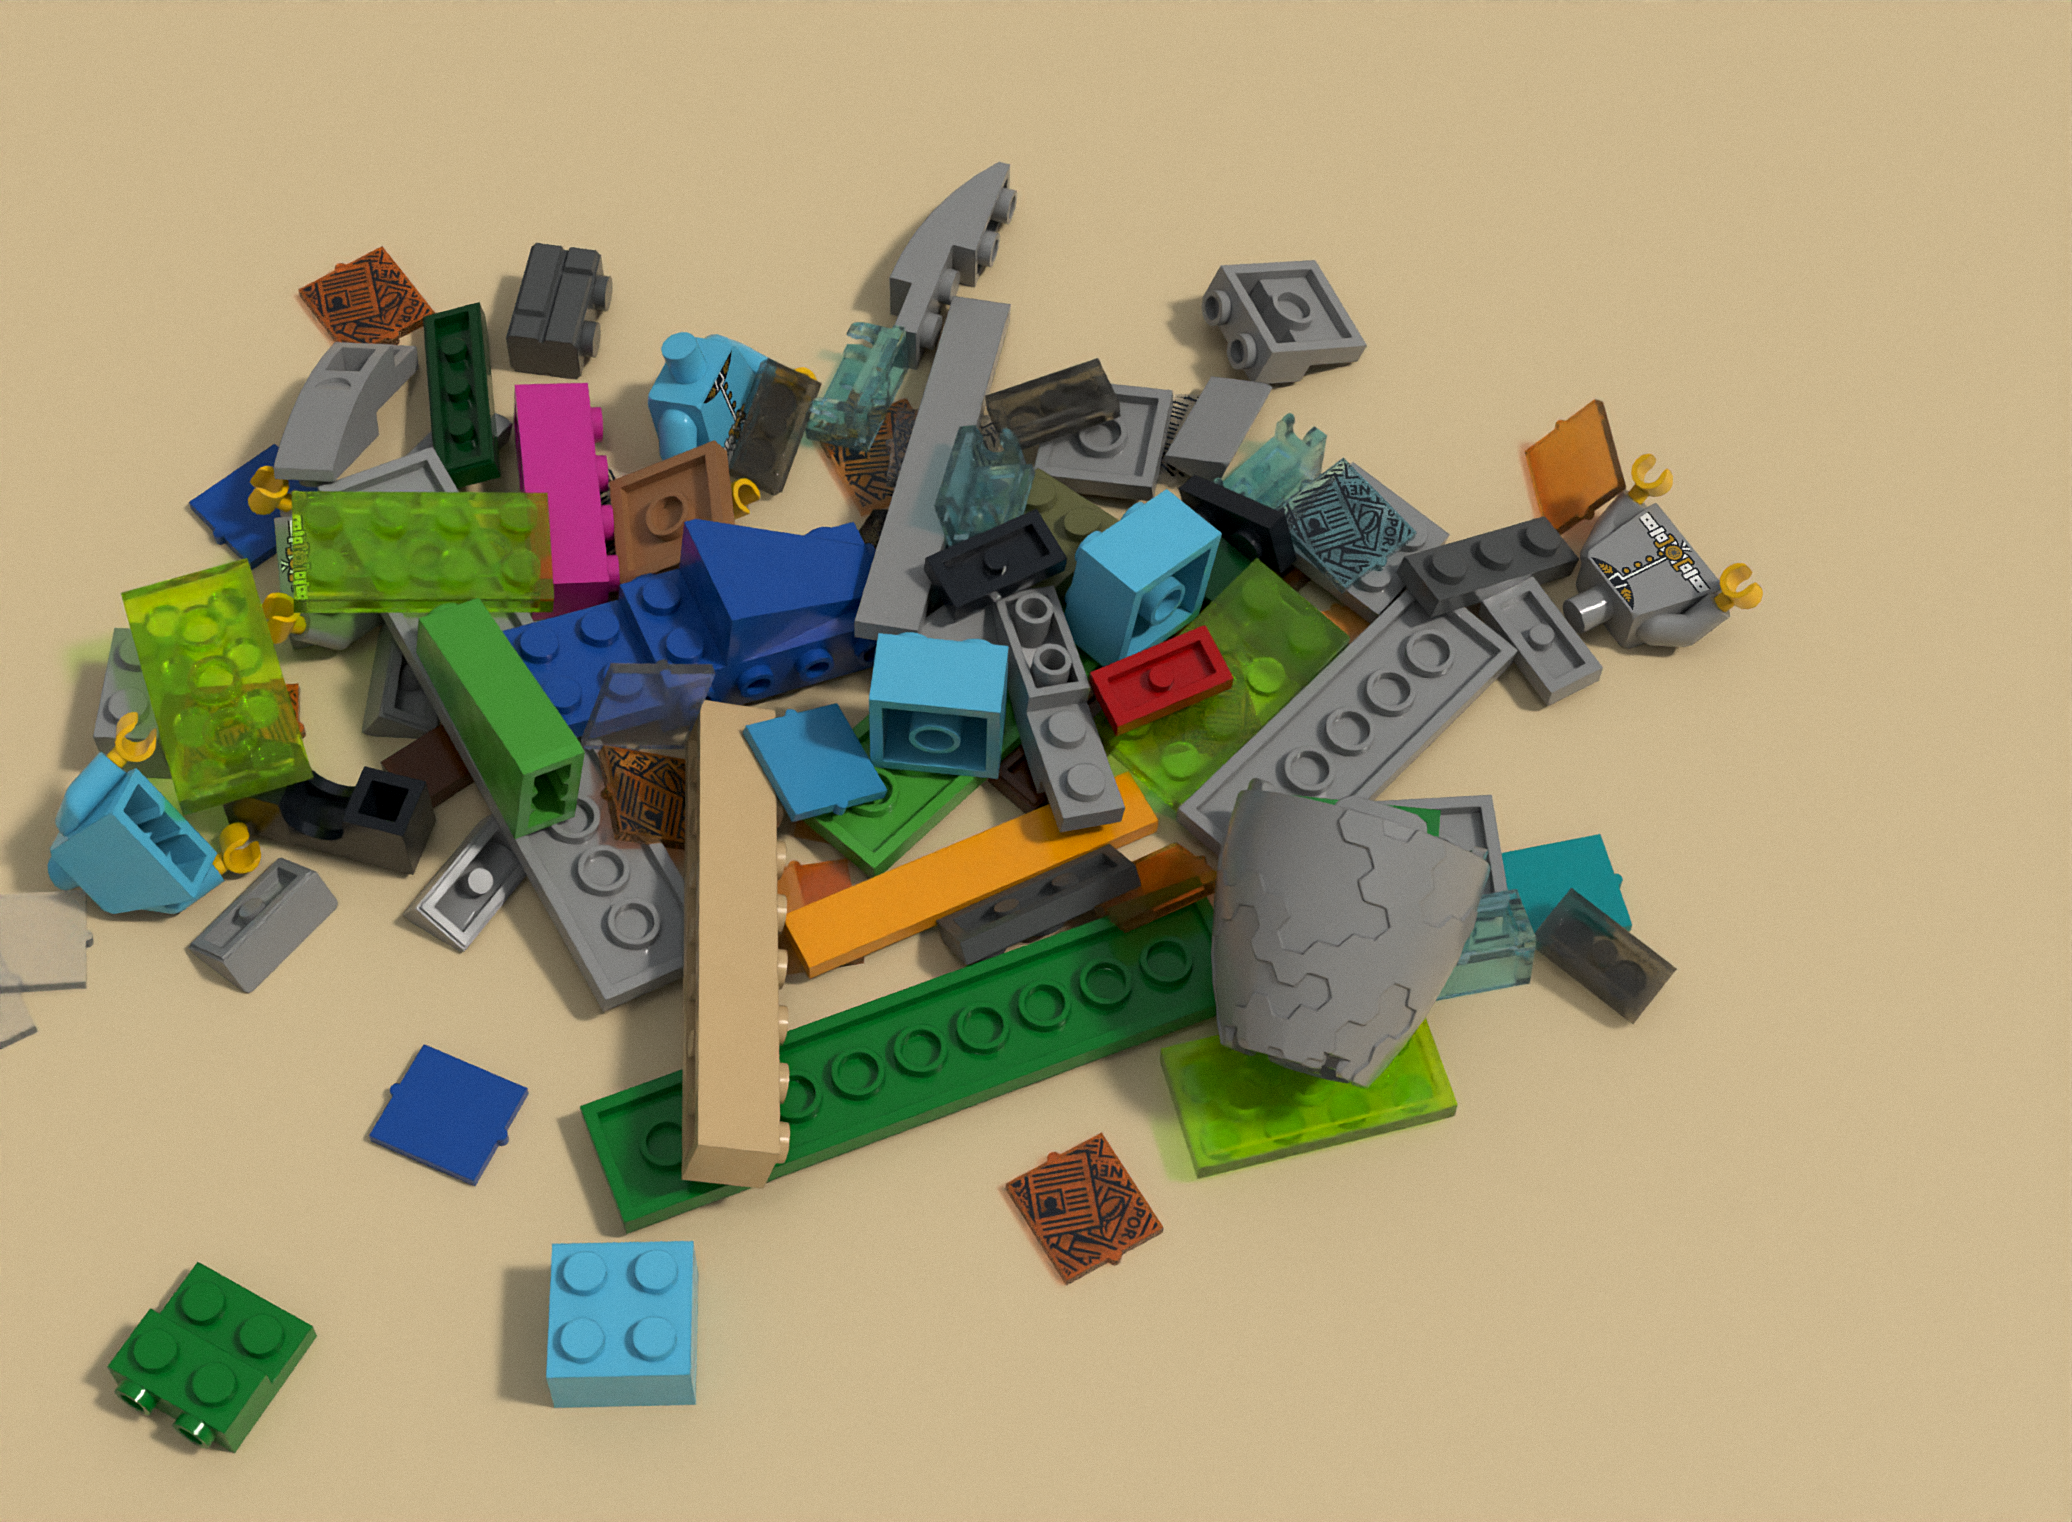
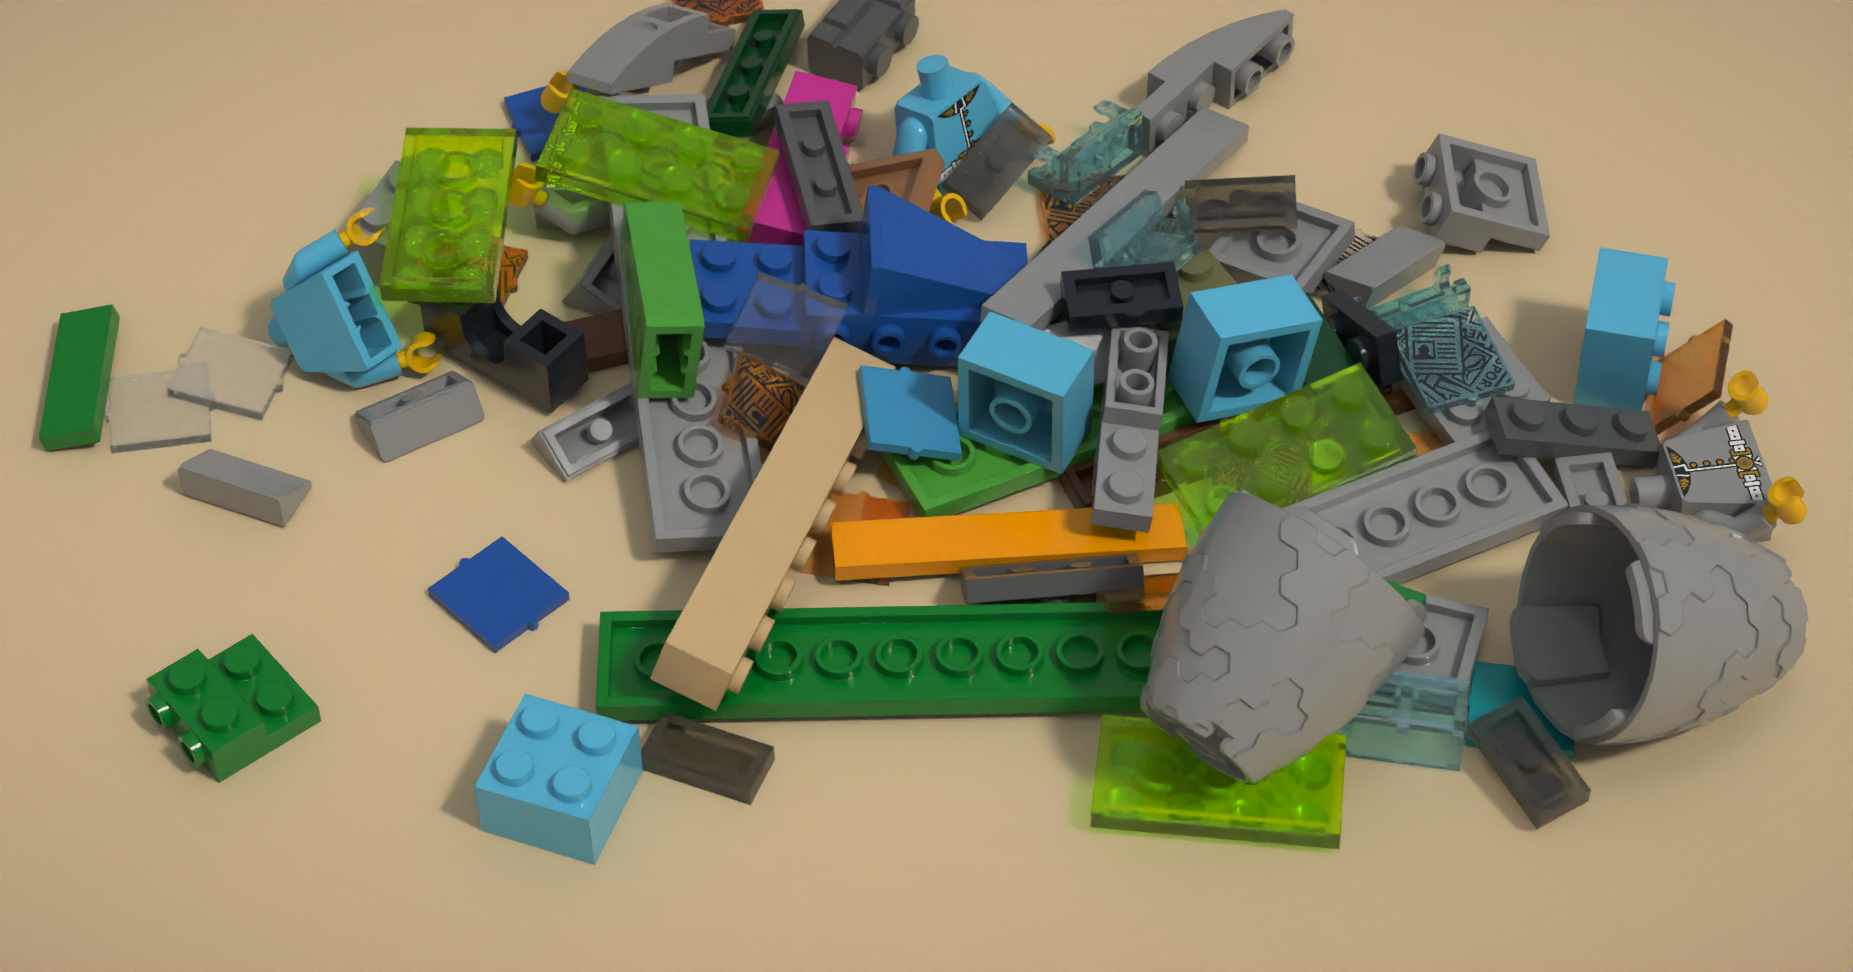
camera: 25 degrees right, 10 degrees down
(103, 1077) = (243, 486): none -> light grey slope
(597, 501) = (818, 167): none -> dark grey plate
(763, 1236) = (707, 757): none -> clear smoke tile
(1084, 1208) = (984, 821): clear orange piece -> none
(1160, 680) = (1227, 427): red plate -> none
(1494, 439) = (1624, 330): none -> medium azure brick
(1673, 778) = (1650, 622): none -> light grey piece

